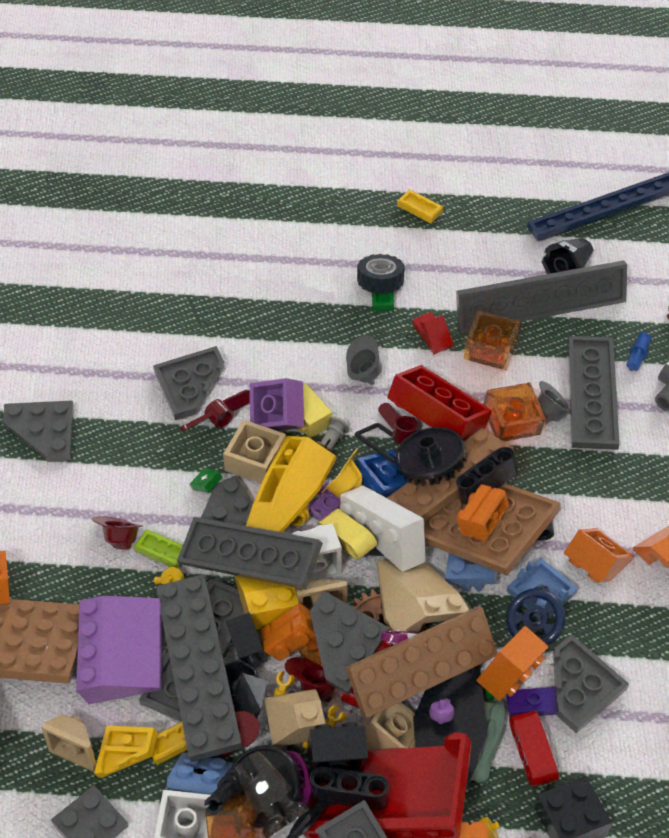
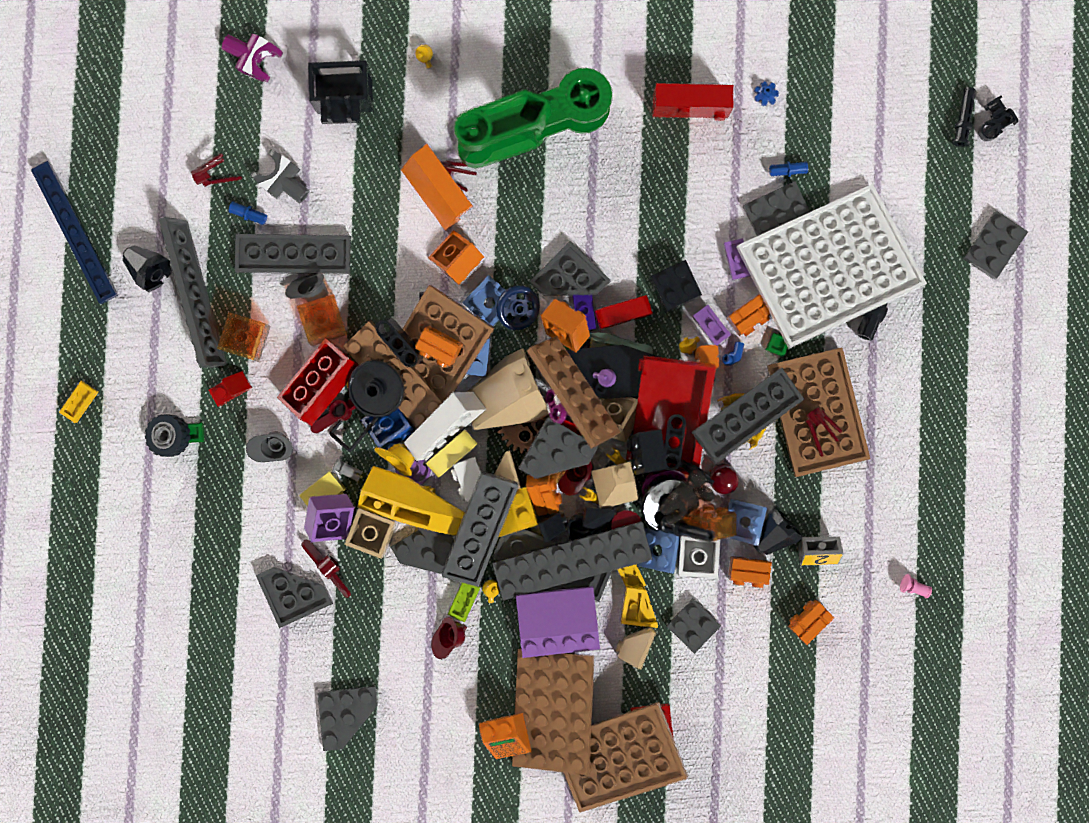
camera: 90 degrees left, 35 degrees up
(206, 480) = (396, 571): green tile -> none

